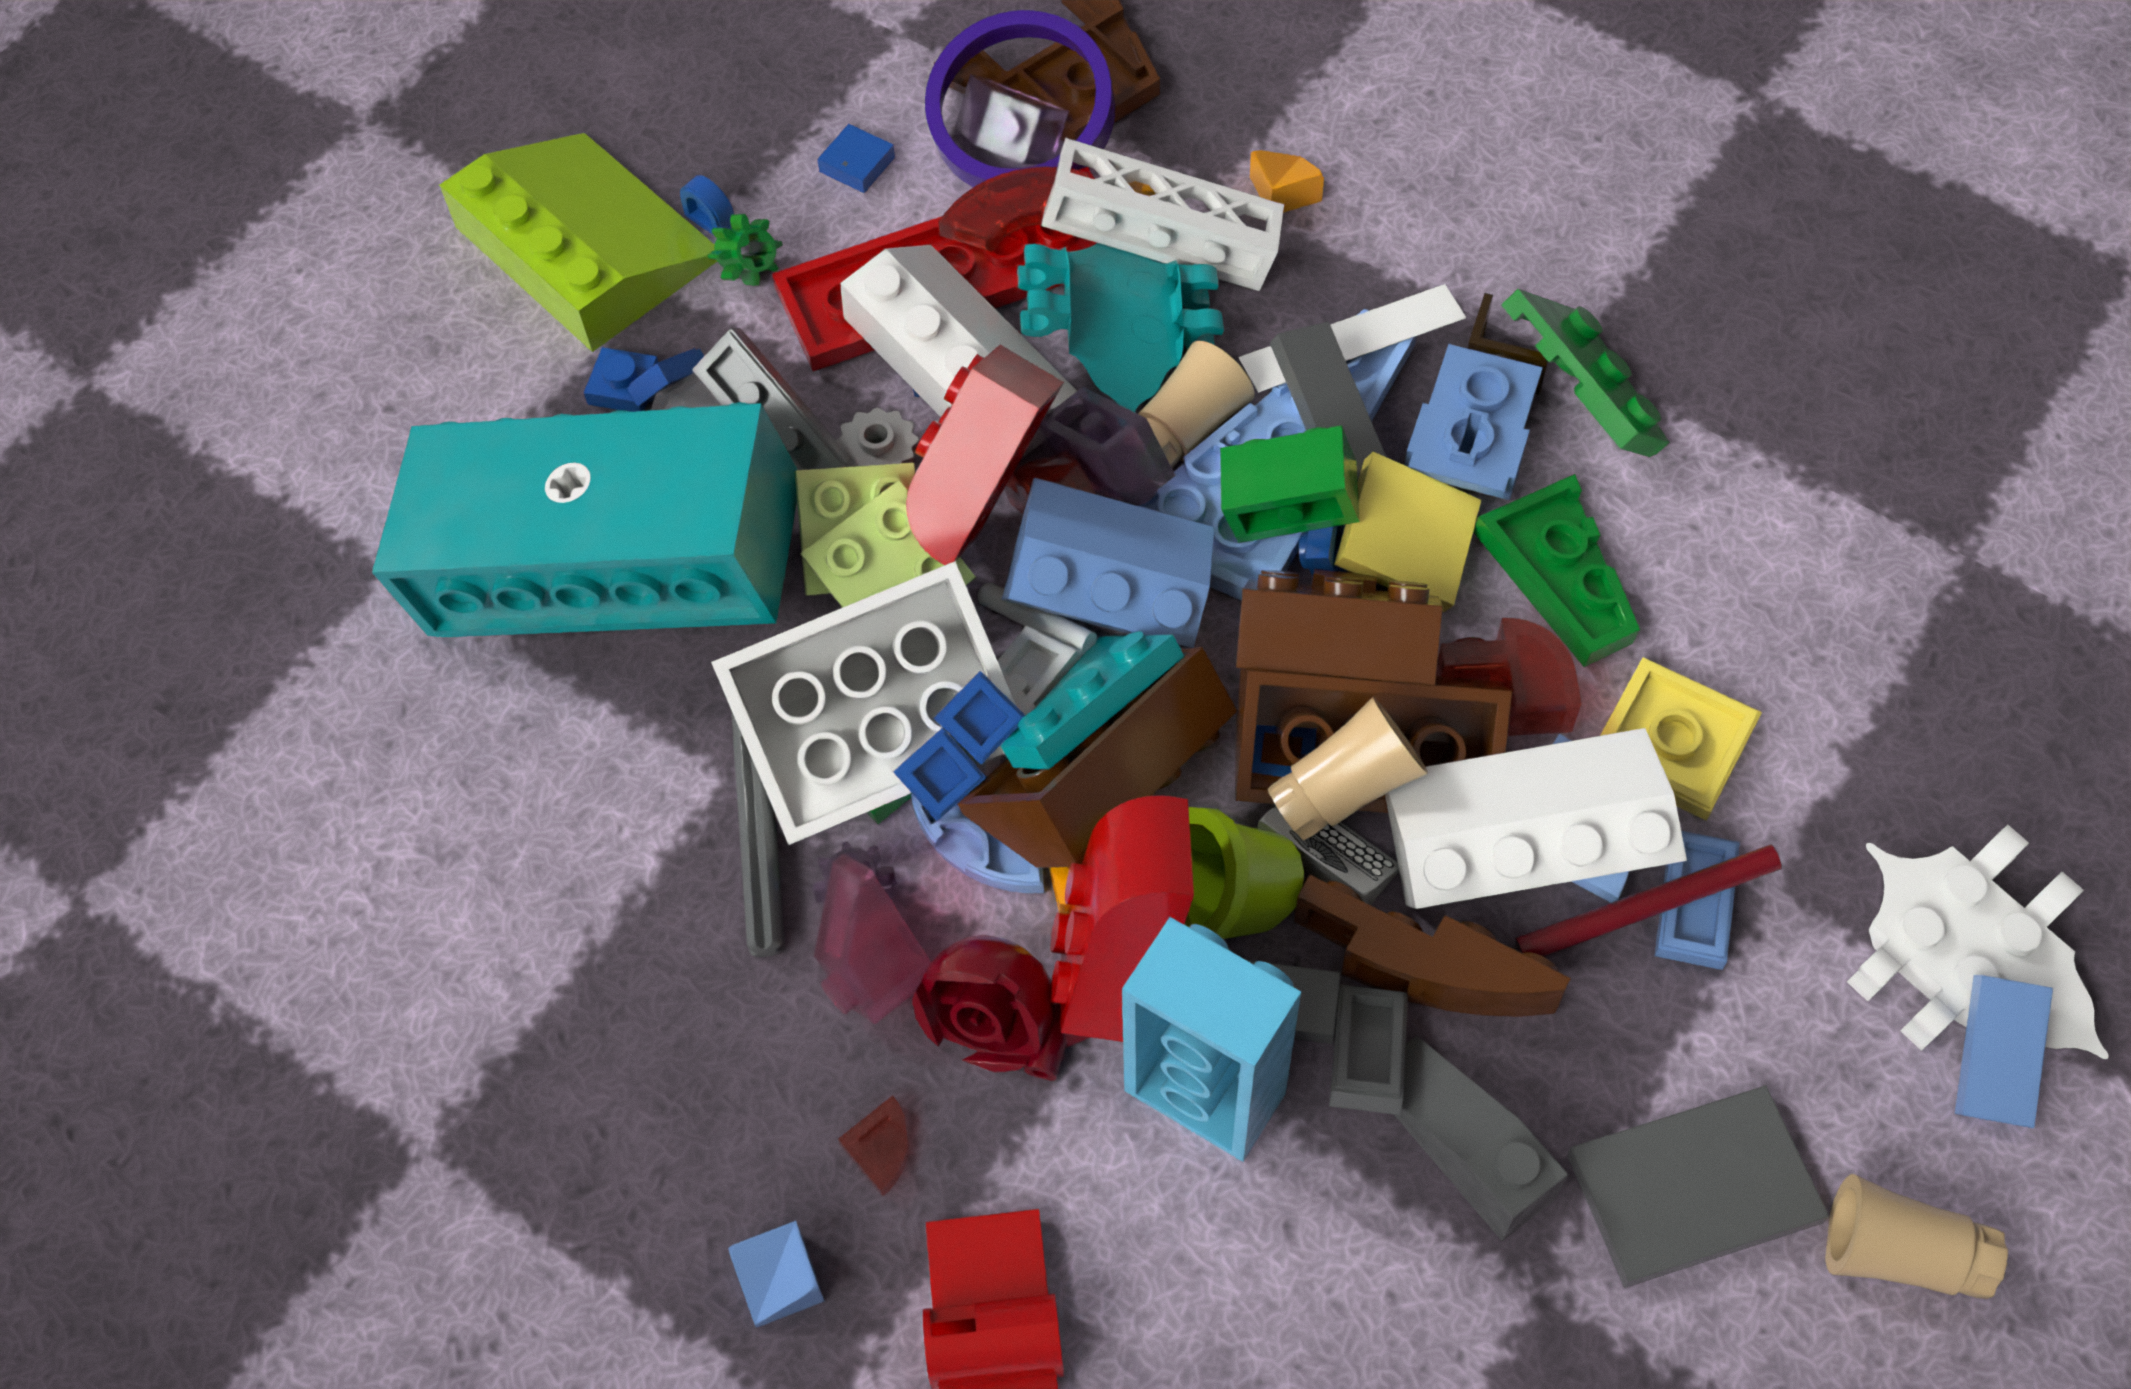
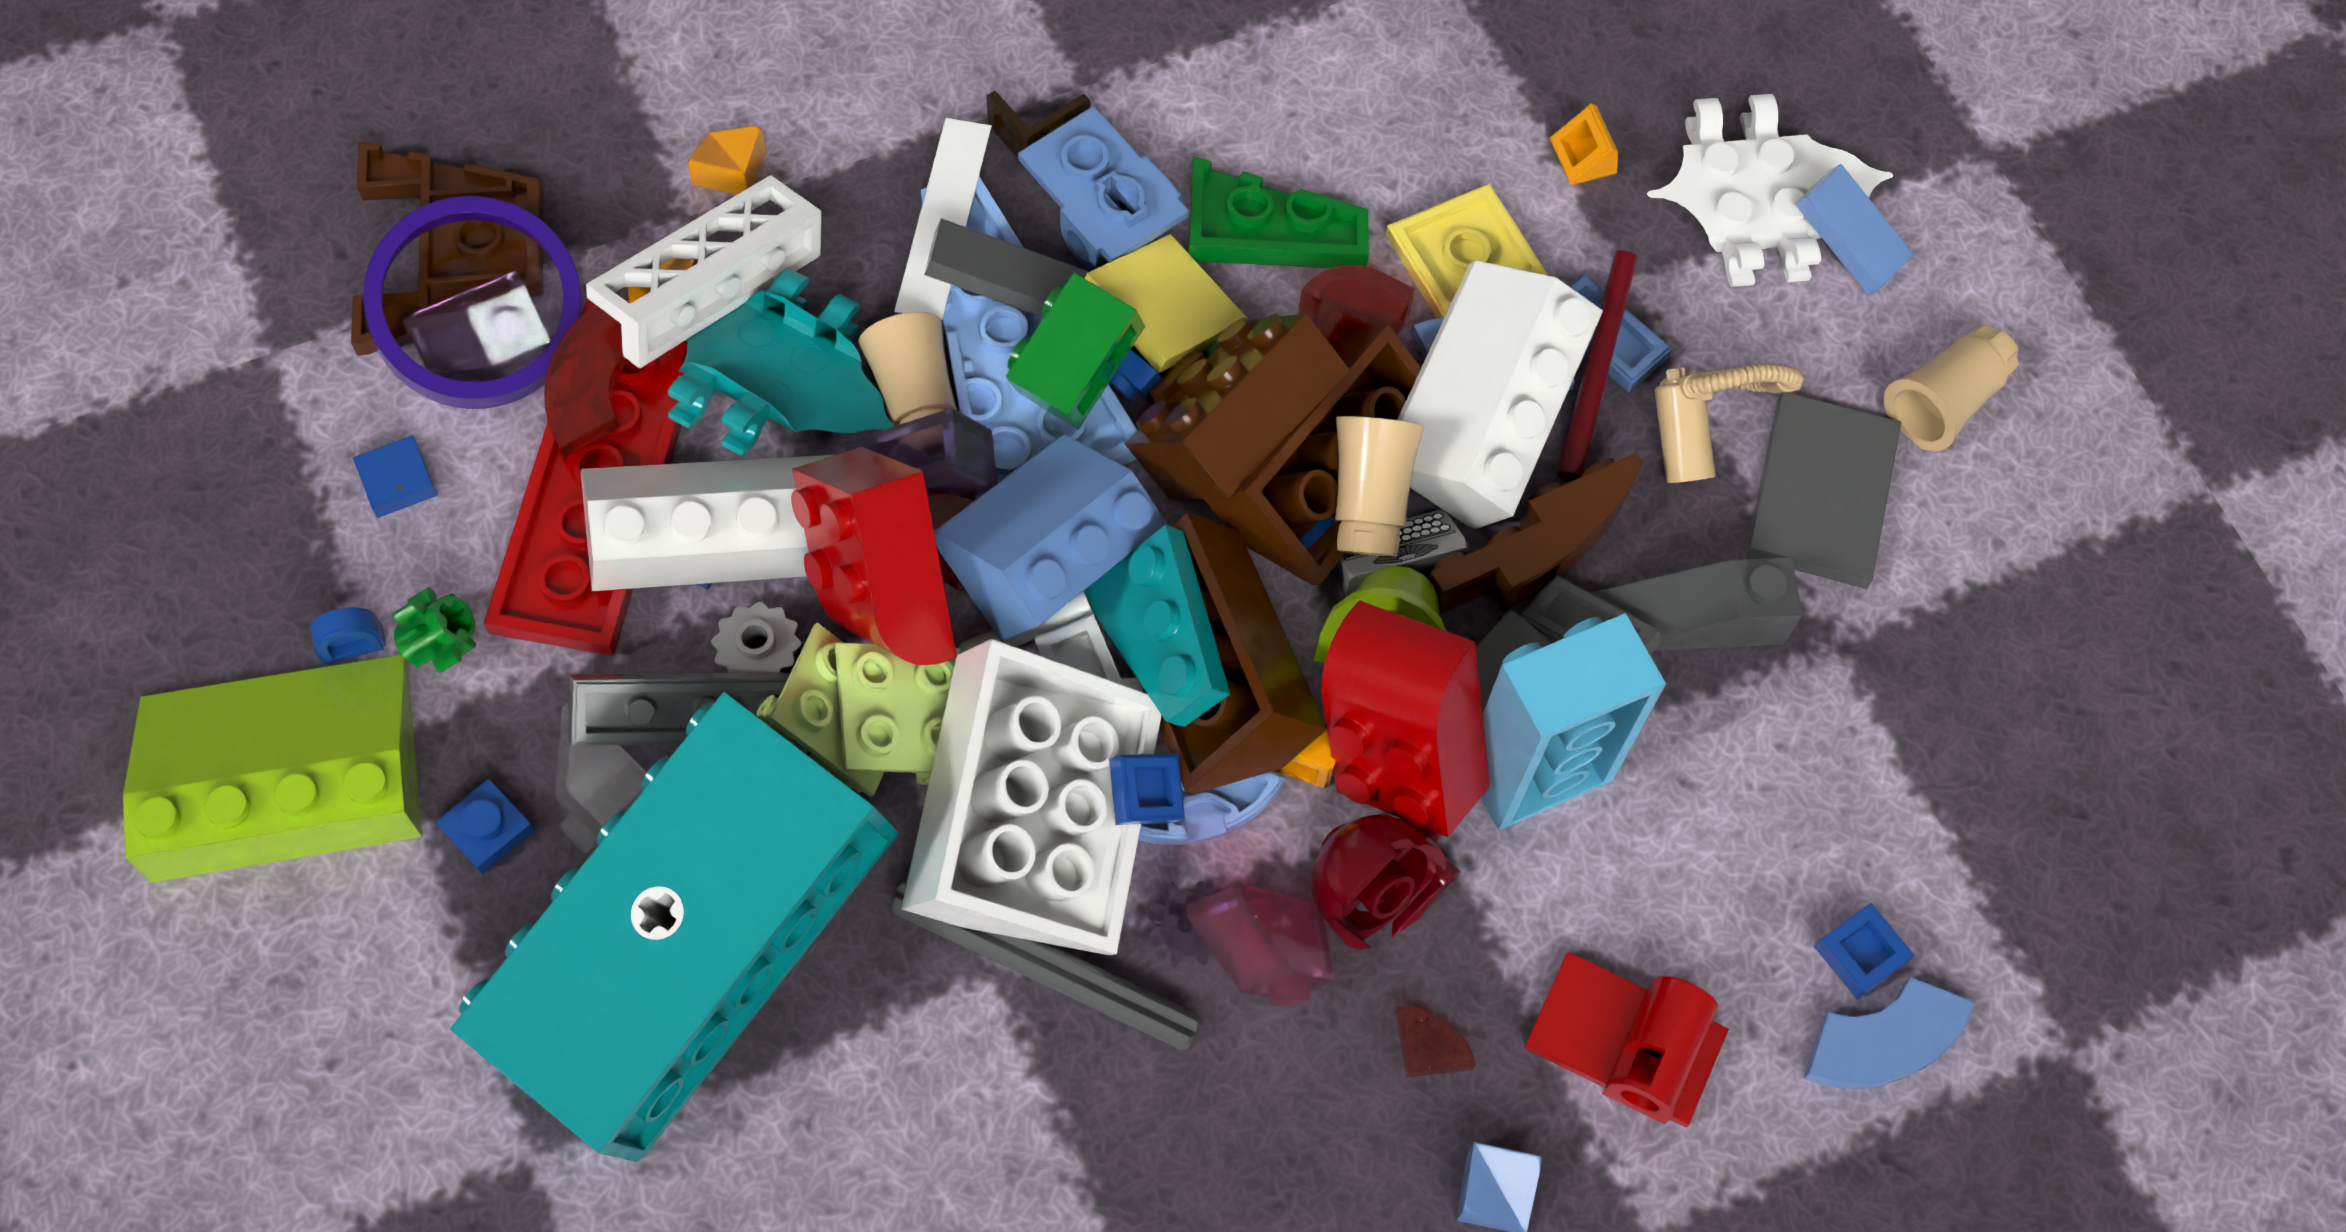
camera: 65 degrees left, 5 degrees up
(663, 375) = (532, 778): blue tile -> none
(979, 717) = (1126, 721): blue tile -> none
(1604, 388) = (1093, 75): green wing -> none
(1649, 1005) = (1685, 418): none -> tan piece
(1877, 770) = (1585, 147): none -> light orange slope

